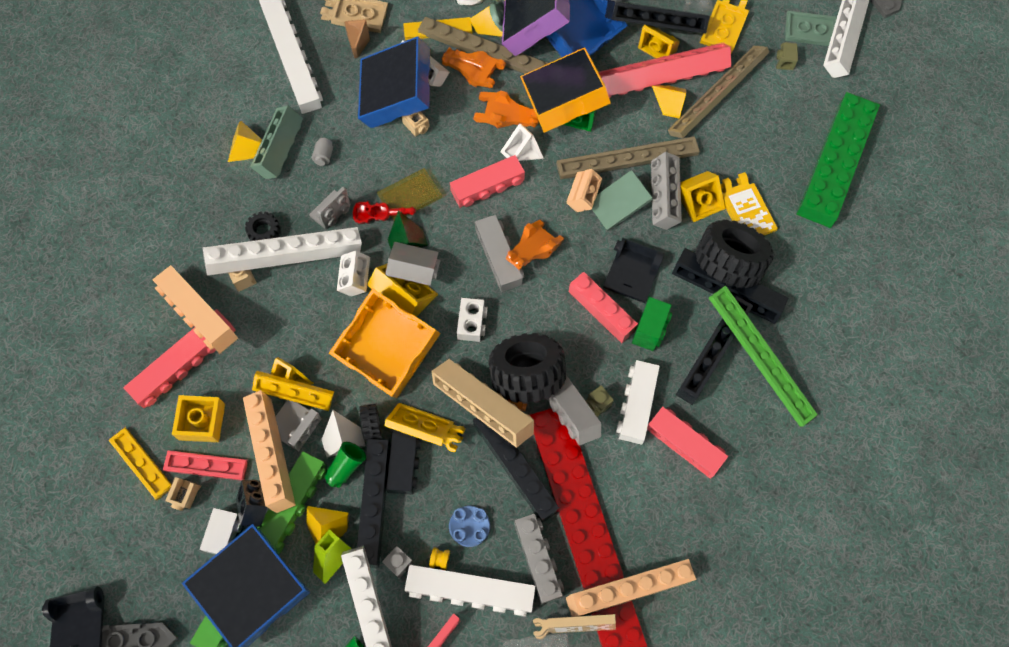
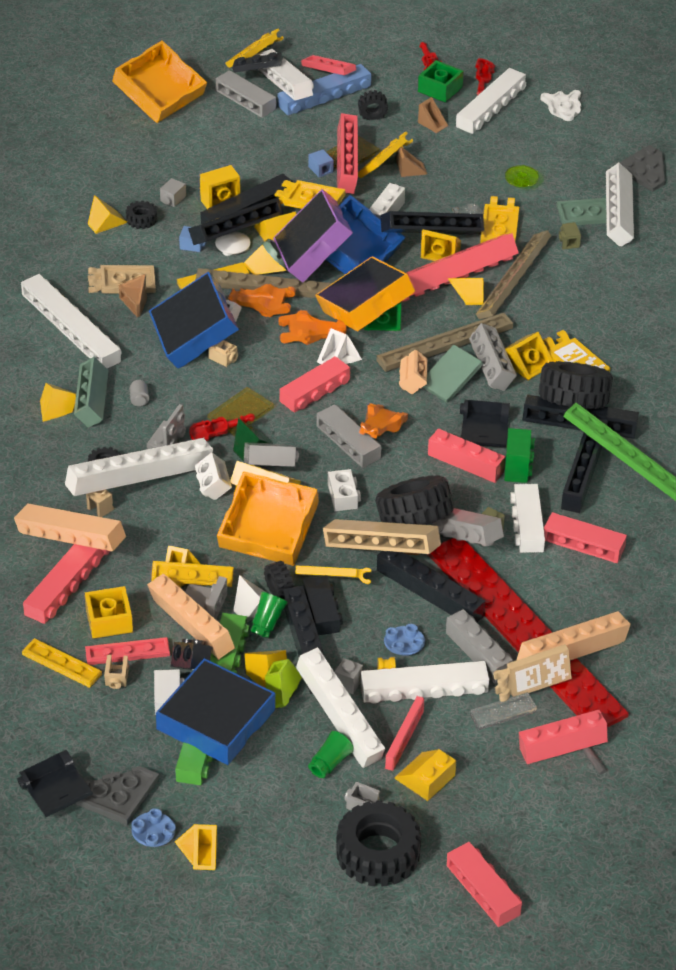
camera: 15 degrees left, 25 degrees down
(838, 160) = (647, 305): green brick -> none

